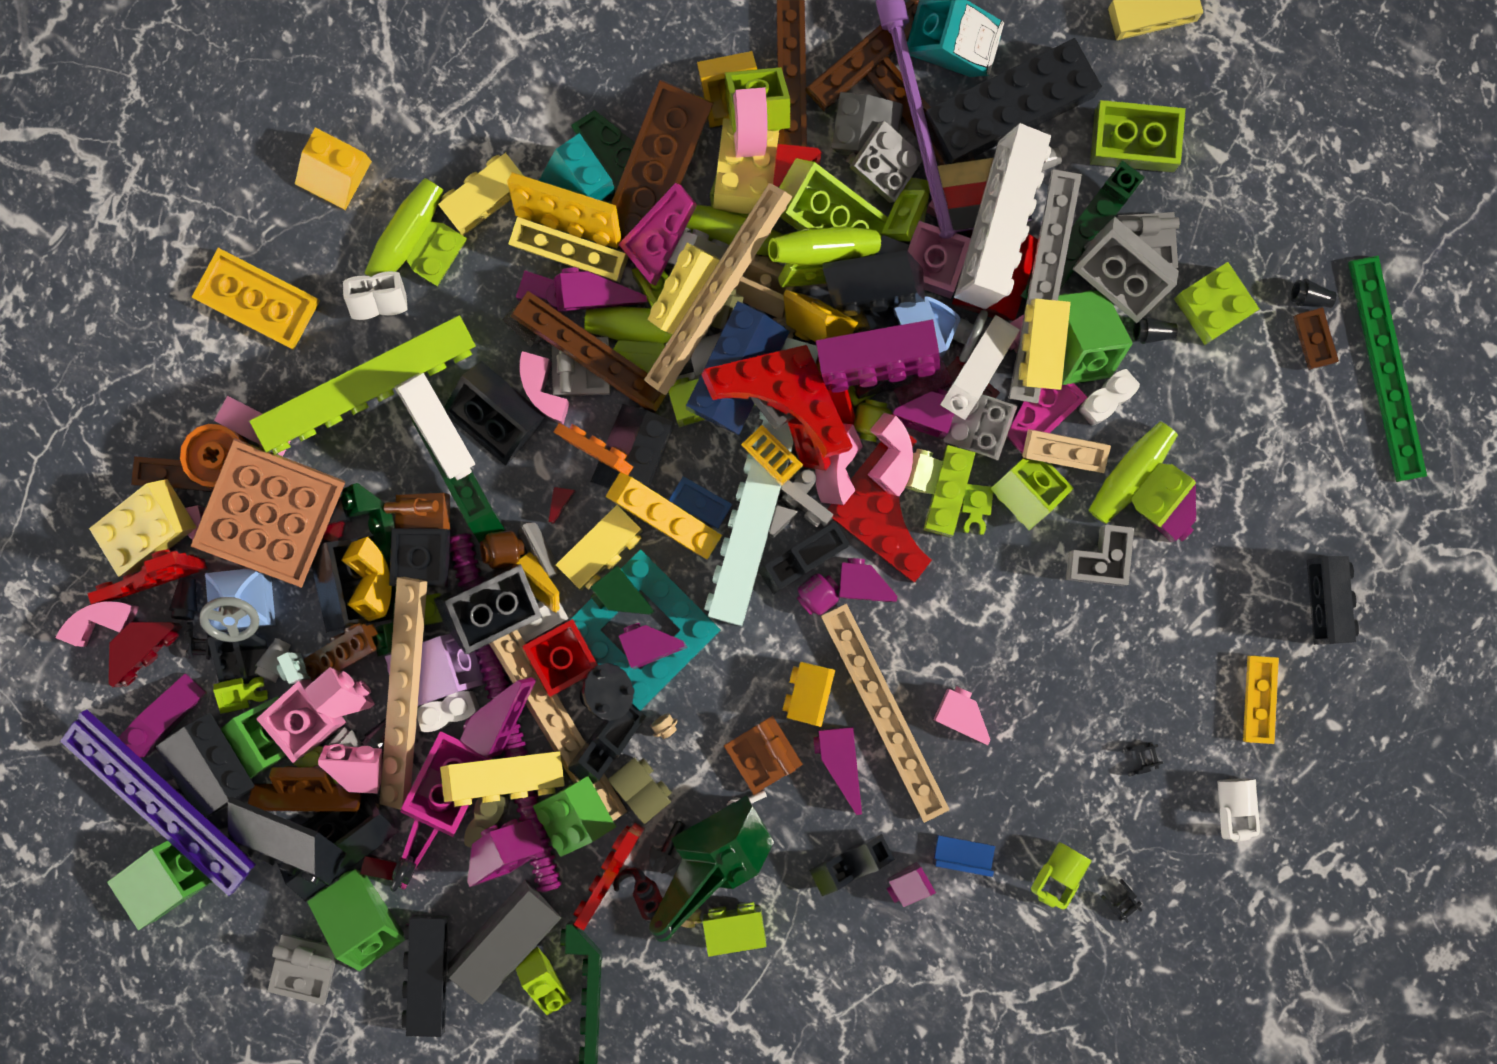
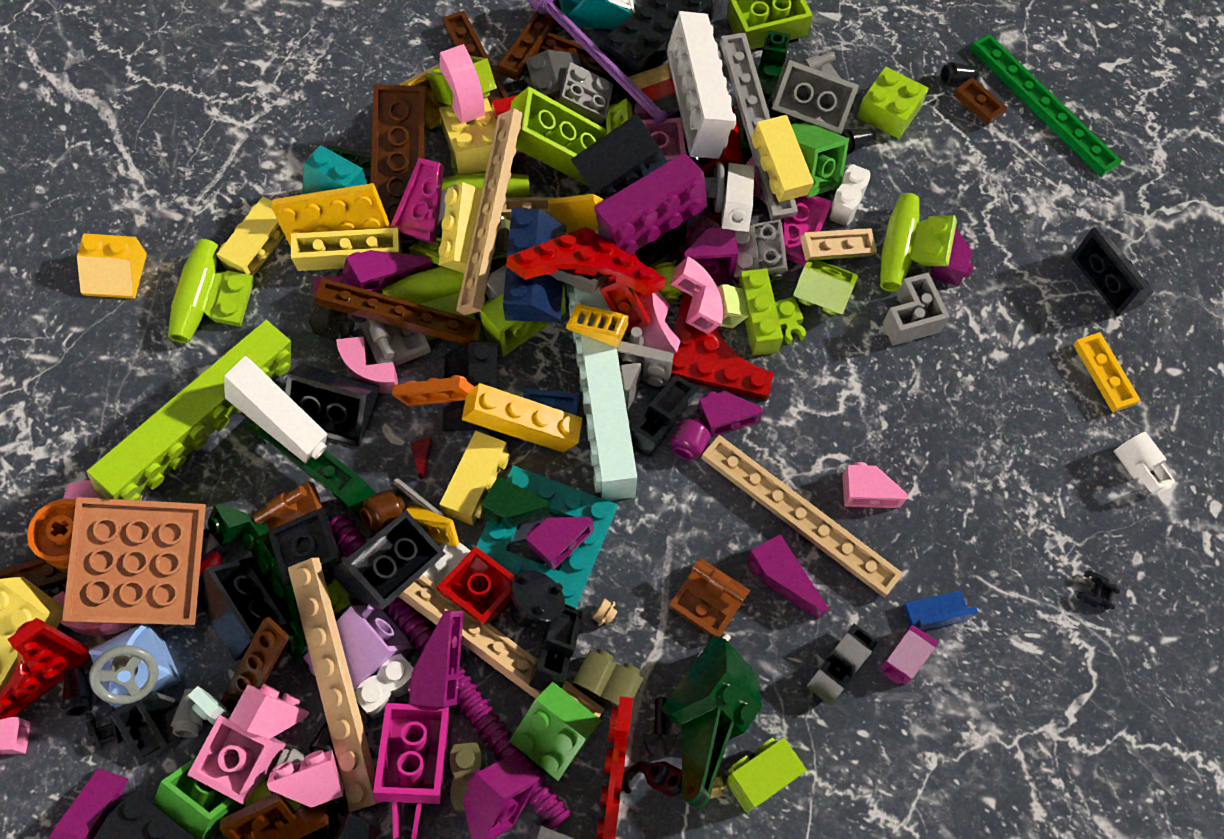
camera: 30 degrees left, 20 degrees down
(136, 648) = (38, 759): dark red slope -> none
(235, 695) = (159, 764): lime plate -> none
(255, 298) = (70, 394): yellow plate -> none
(373, 592) = (260, 577): yellow brick -> none
(375, 295) = (183, 346): white brick -> none
(501, 777) = (464, 719): light yellow brick -> none
(809, 693) = (726, 522): yellow slope -> none
(810, 248) = (555, 152): lime plate -> none
(1067, 868) = (1034, 582): lime piece -> none
(1145, 767) = (1046, 467): black piece -> none

